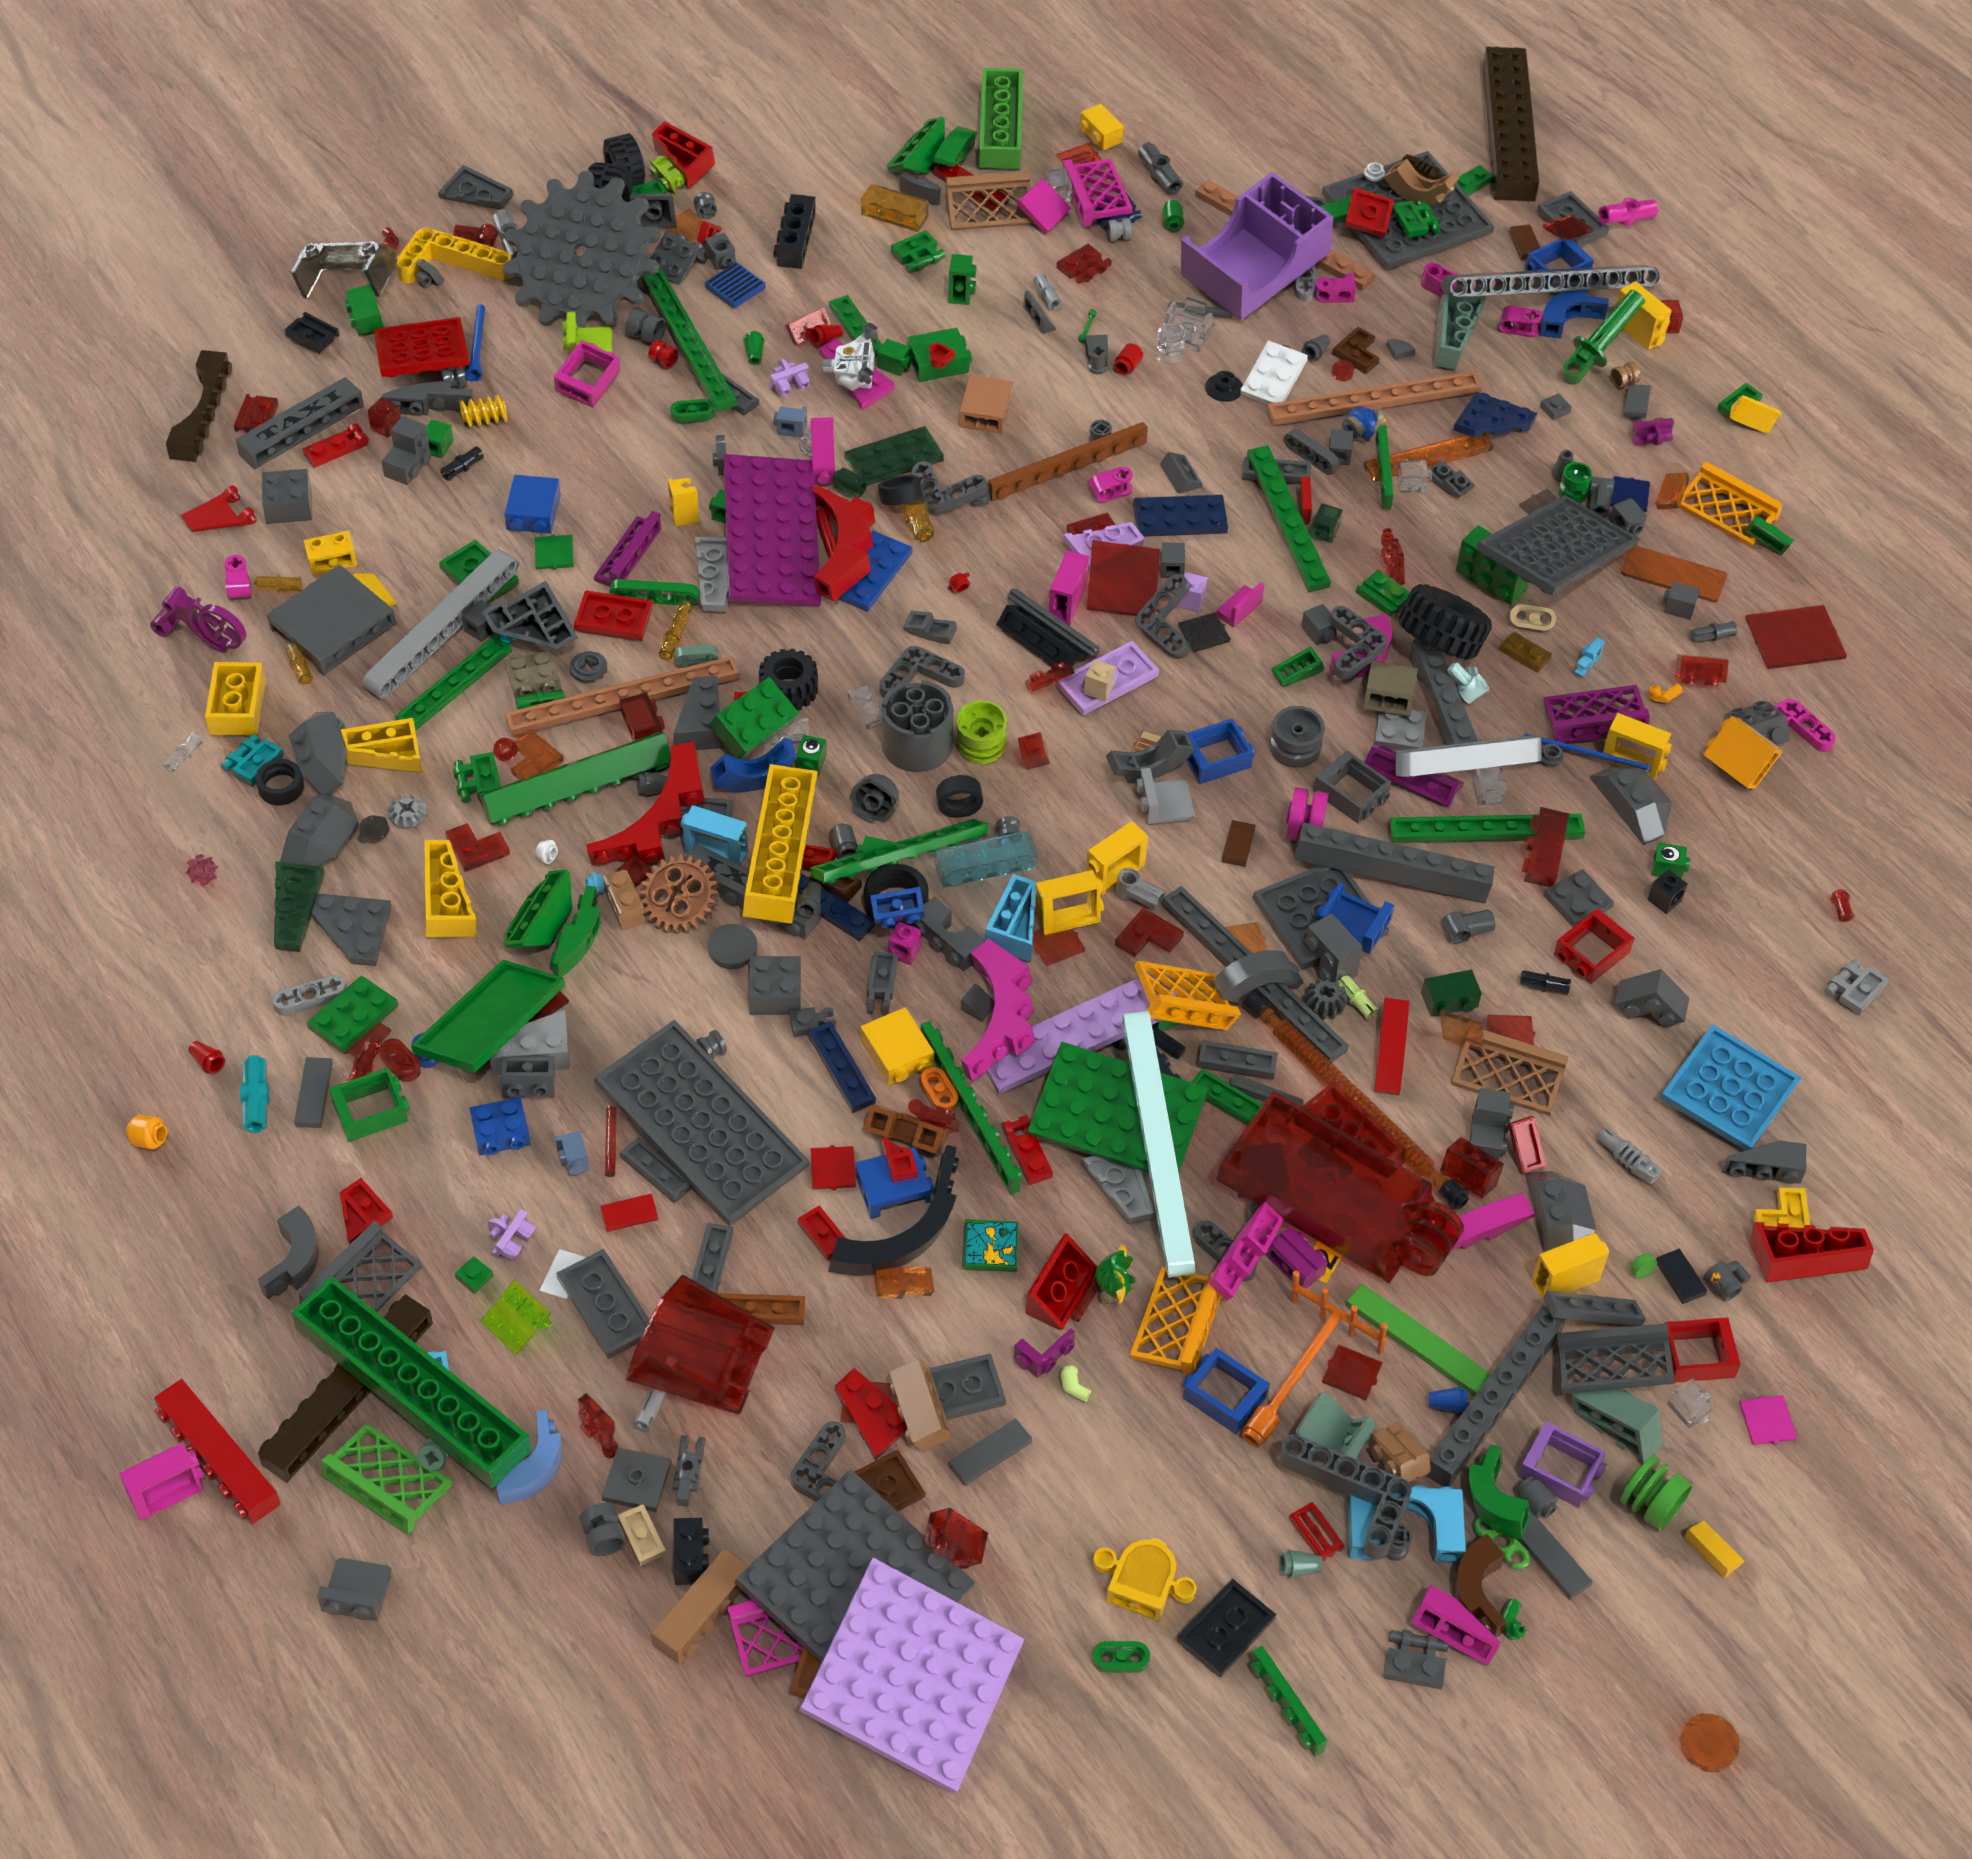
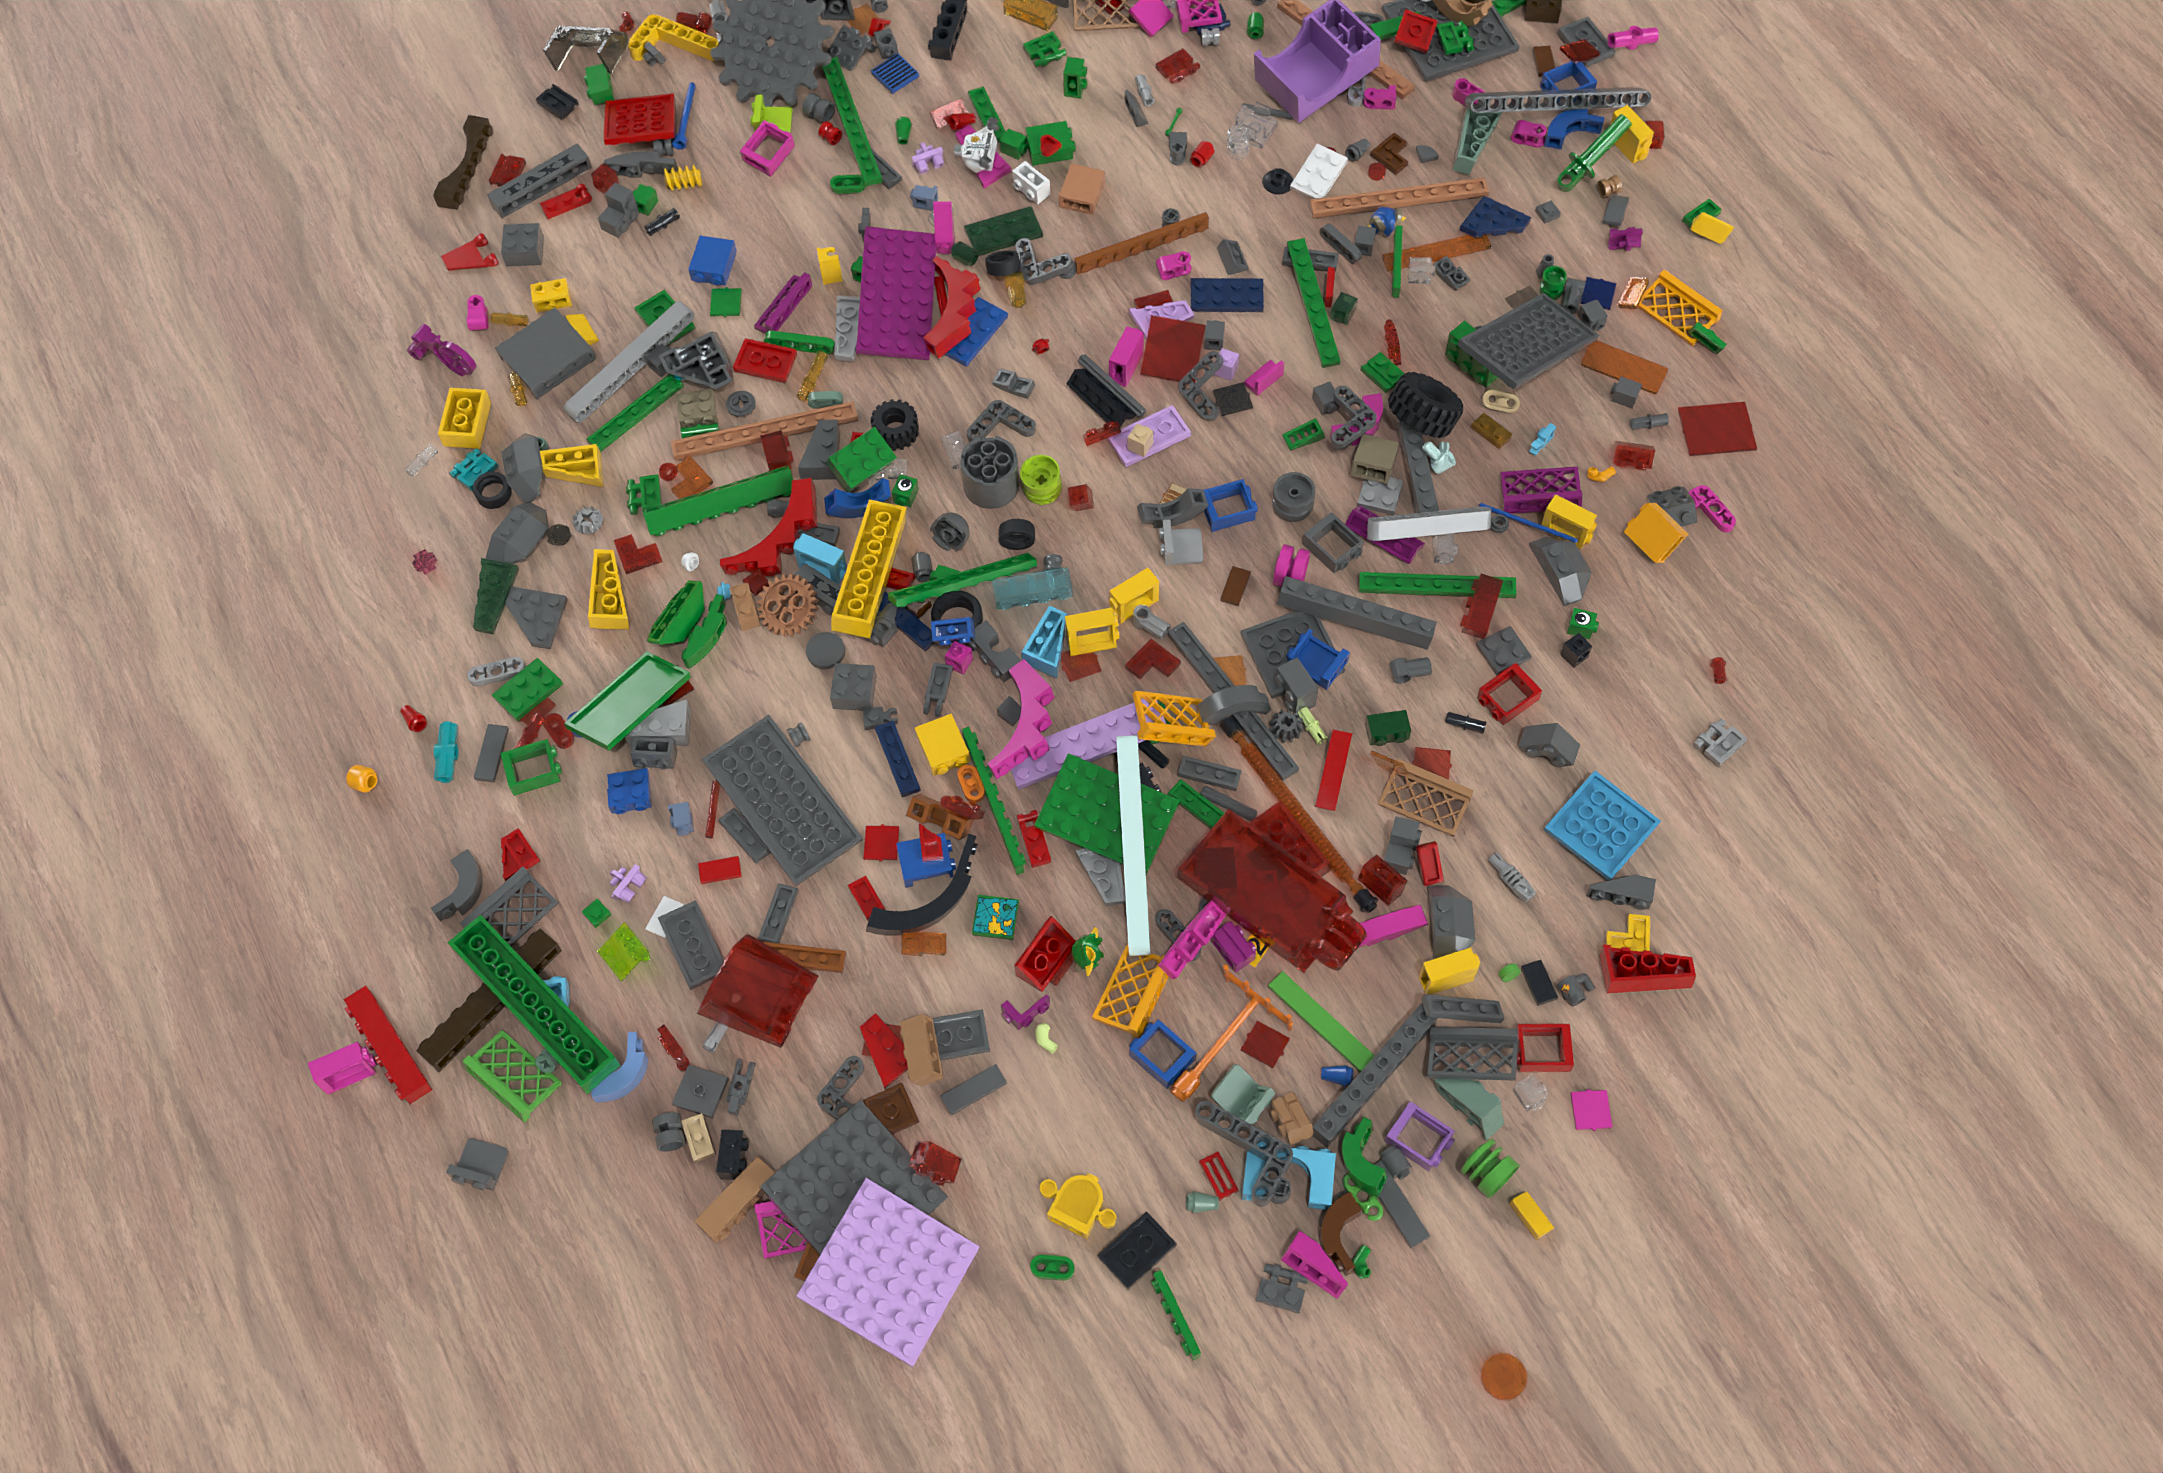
camera: 10 degrees right, 10 degrees up
(922, 398) = (1031, 182): none -> white brick

